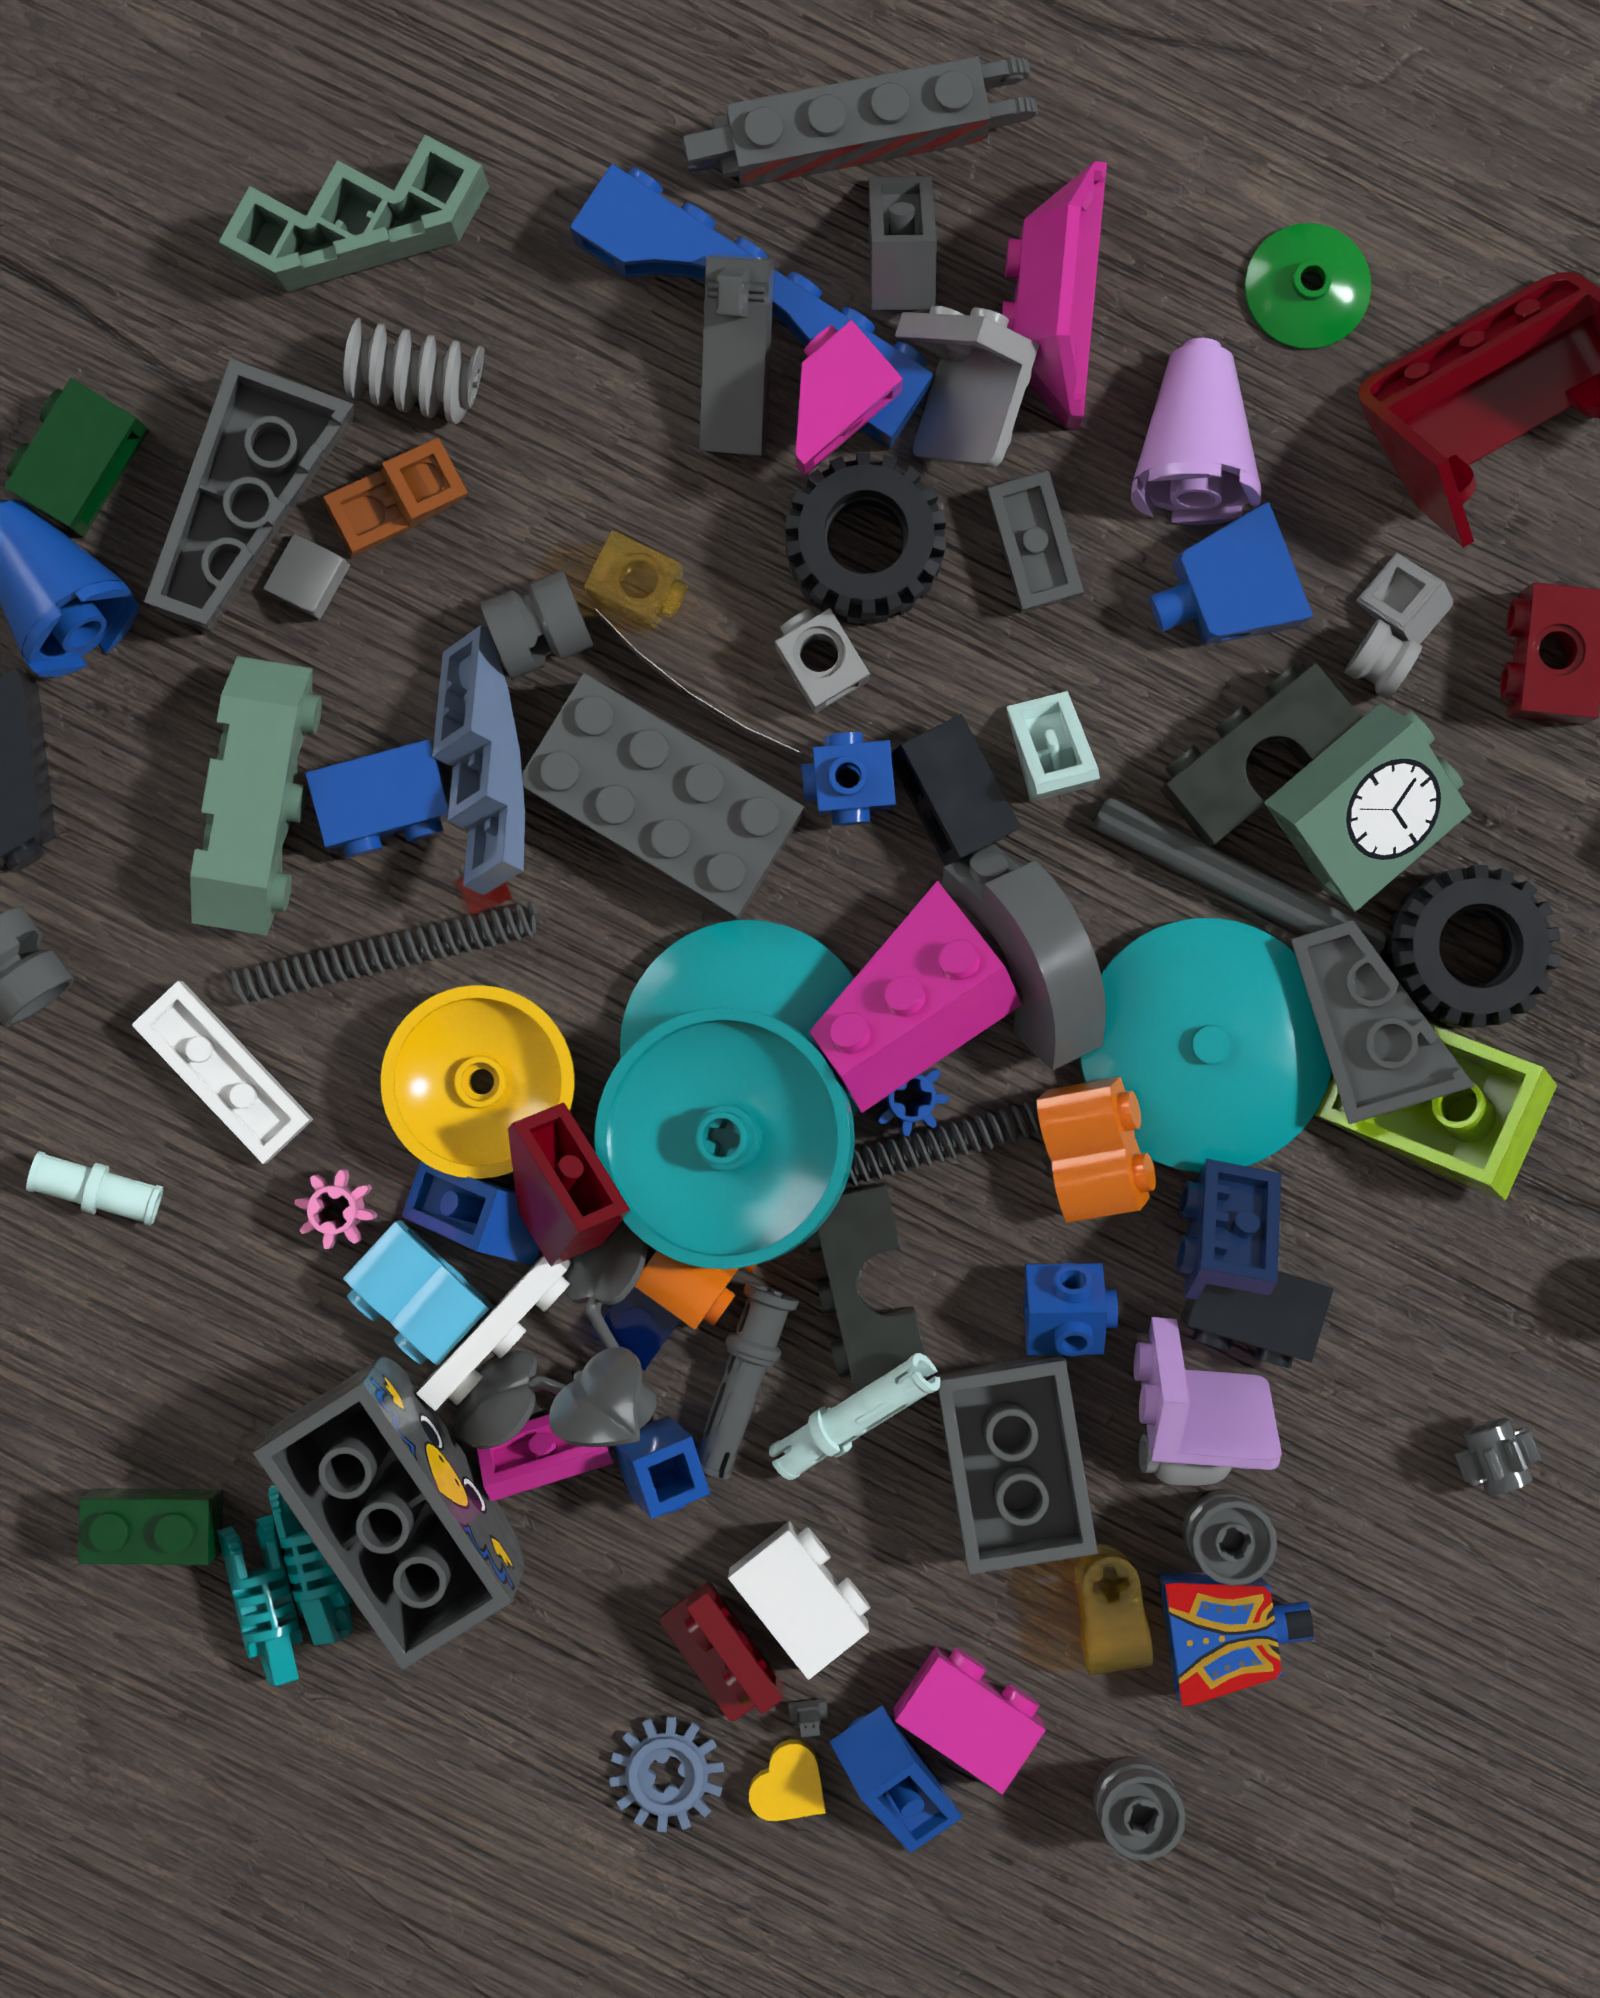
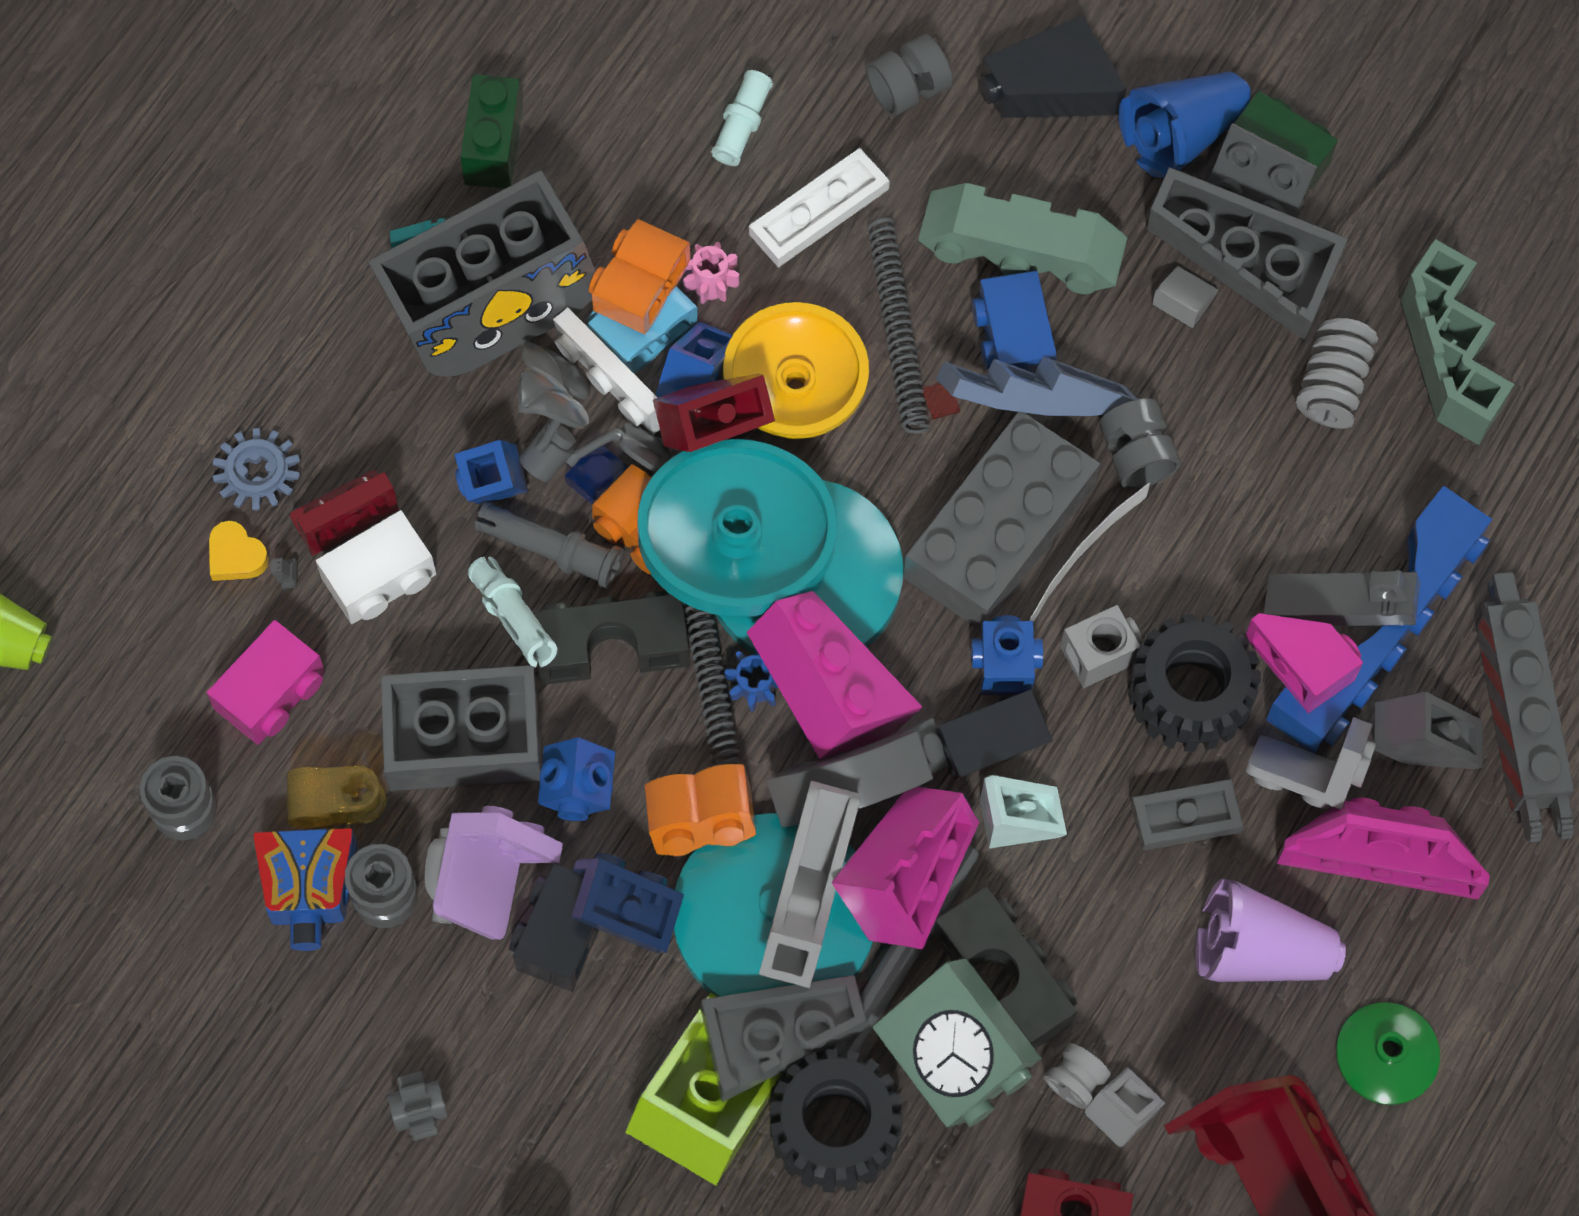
camera: 90 degrees right, 20 degrees down
(139, 482) = (1262, 172): none -> dark grey hinge
(263, 1602) = (421, 201): teal hinge -> none
(371, 1302) = (639, 276): none -> orange brick
(395, 498) = (1240, 360): dark orange slope -> none
(535, 1459) = (502, 376): dark pink plate -> none
(619, 558) = (1173, 499): clear yellow brick -> none
(894, 1779) = (225, 624): blue slope -> none
(1151, 881) = (908, 866): none -> dark pink wedge
(1206, 1002) = (807, 885): none -> light grey arch
(1235, 583) = (1146, 964): blue torso -> none

